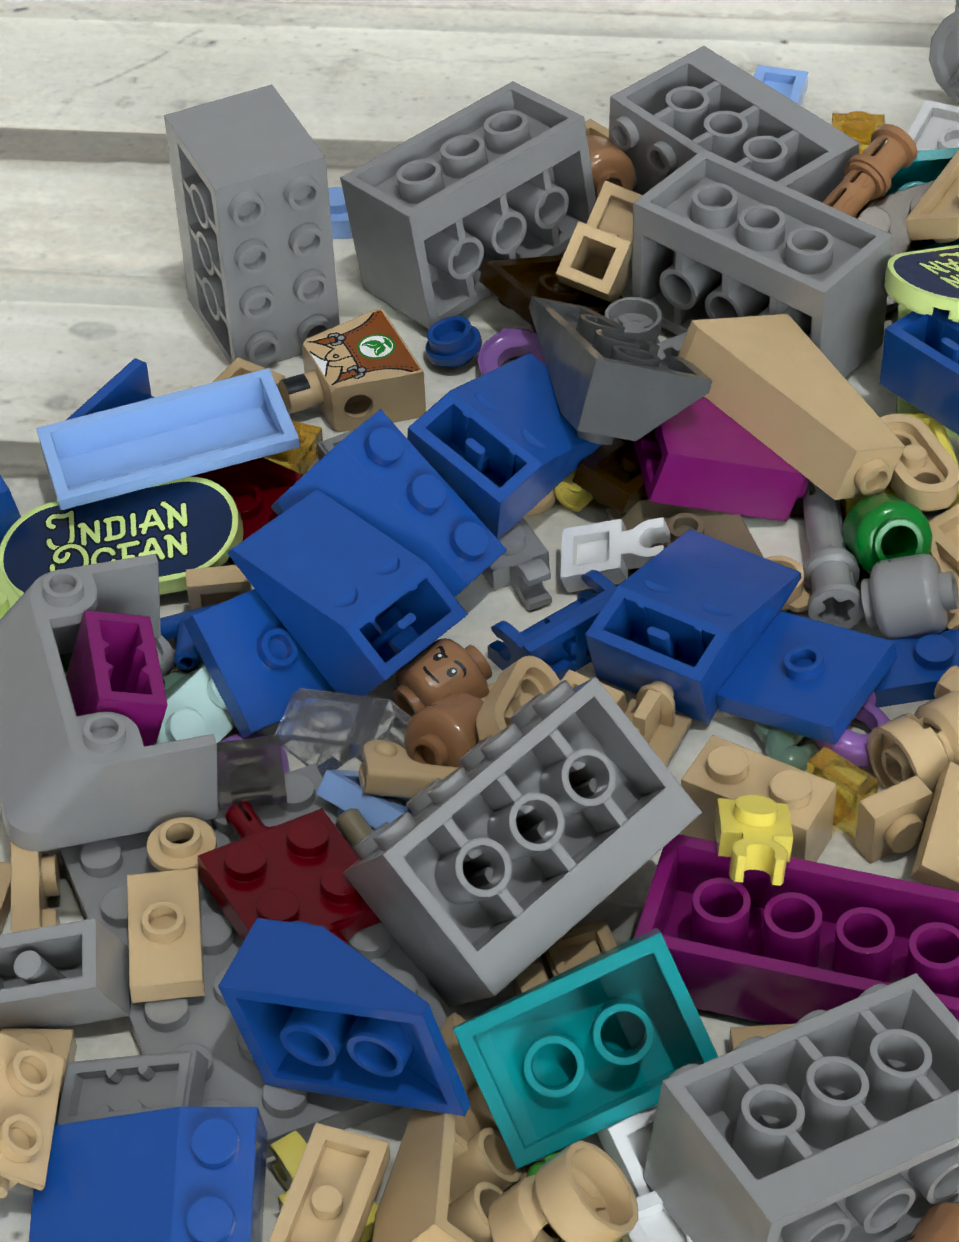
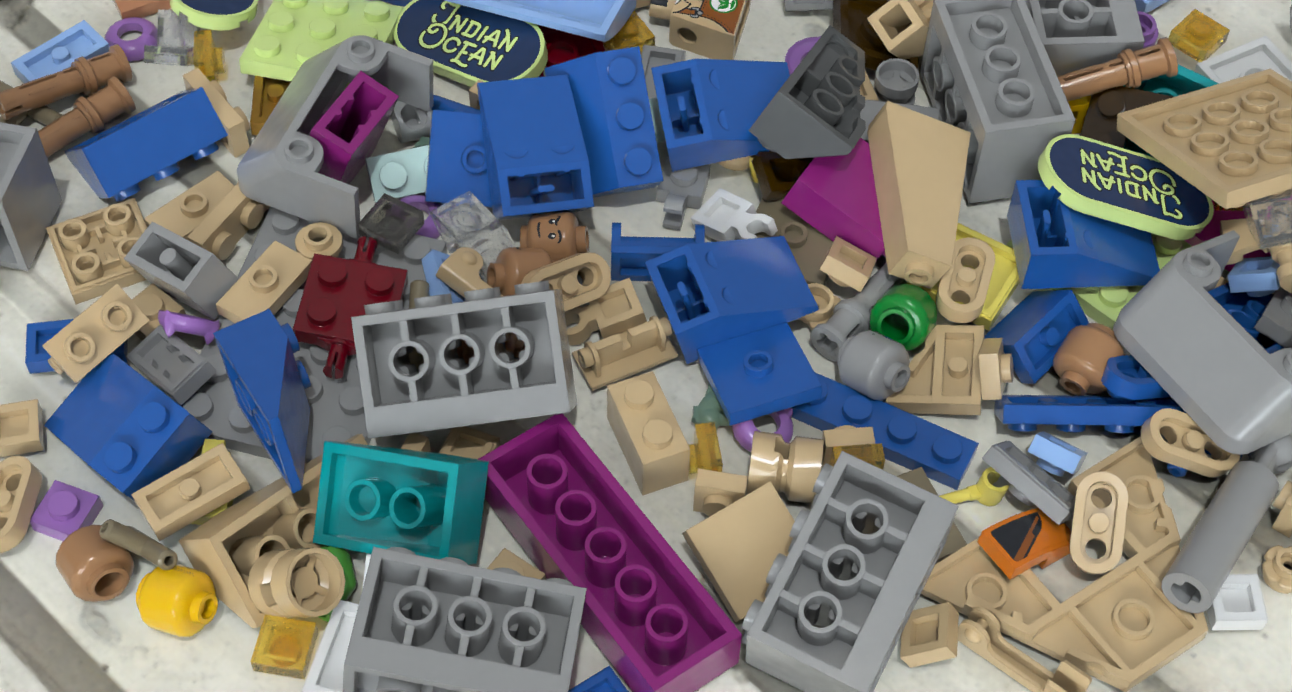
camera: 35 degrees right, 10 degrees up
(101, 1040) = (188, 324): none -> medium lavender piece
(452, 342) = (786, 26): blue plate -> none
(754, 835) = (597, 444): light yellow plate -> none
(778, 521) = (848, 264): none -> tan plate

